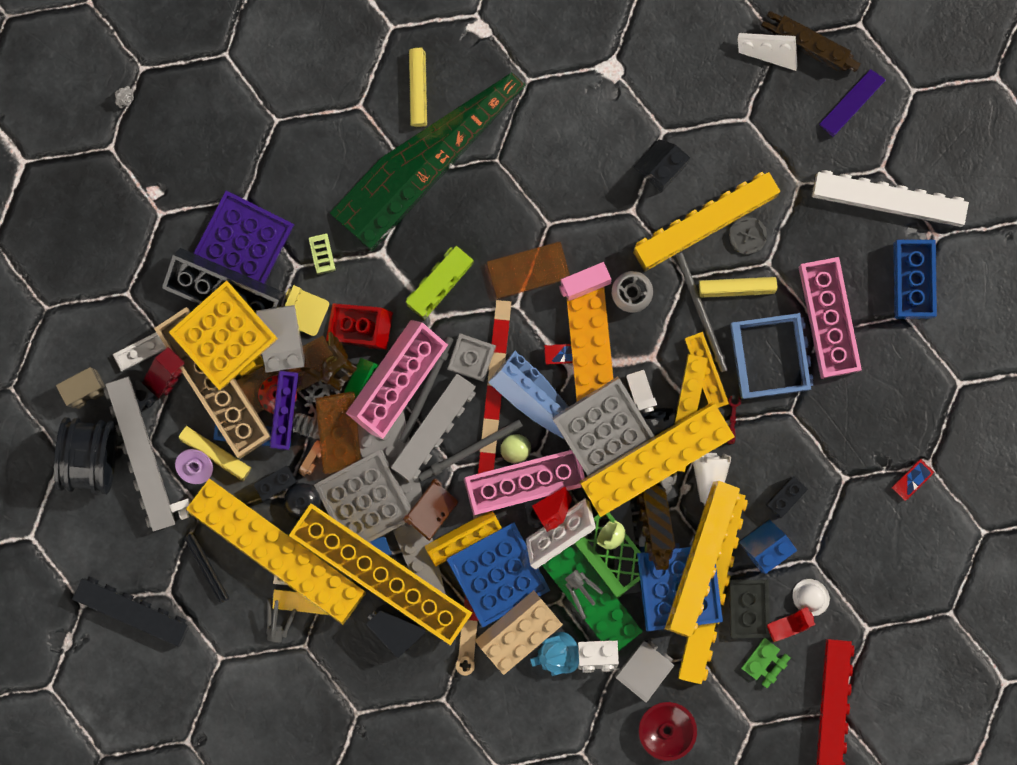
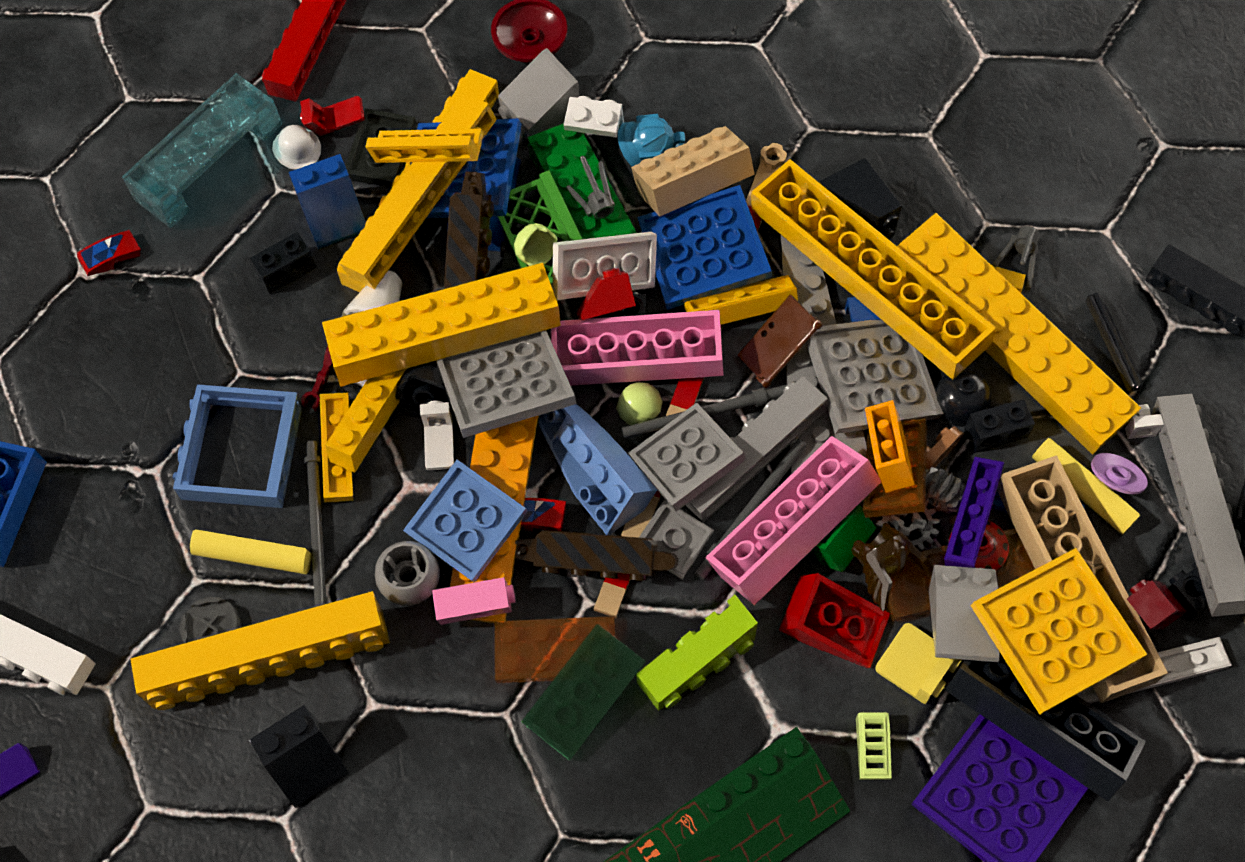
camera: 165 degrees left, 20 degrees down
(344, 438) = (889, 446): none -> light orange brick
(474, 408) = (687, 456): none -> light grey plate
(503, 243) = (583, 691): none -> clear green plate
(516, 332) = (595, 553): none -> dark brown hinge
(604, 330) = (465, 520): none -> medium blue plate
(707, 579) = (426, 145): none -> yellow fence
(761, 659) = (386, 92): bright green plate -> none
(830, 318) = (133, 477): bright pink brick -> none
(873, 571) = (197, 144): none -> clear light blue plate

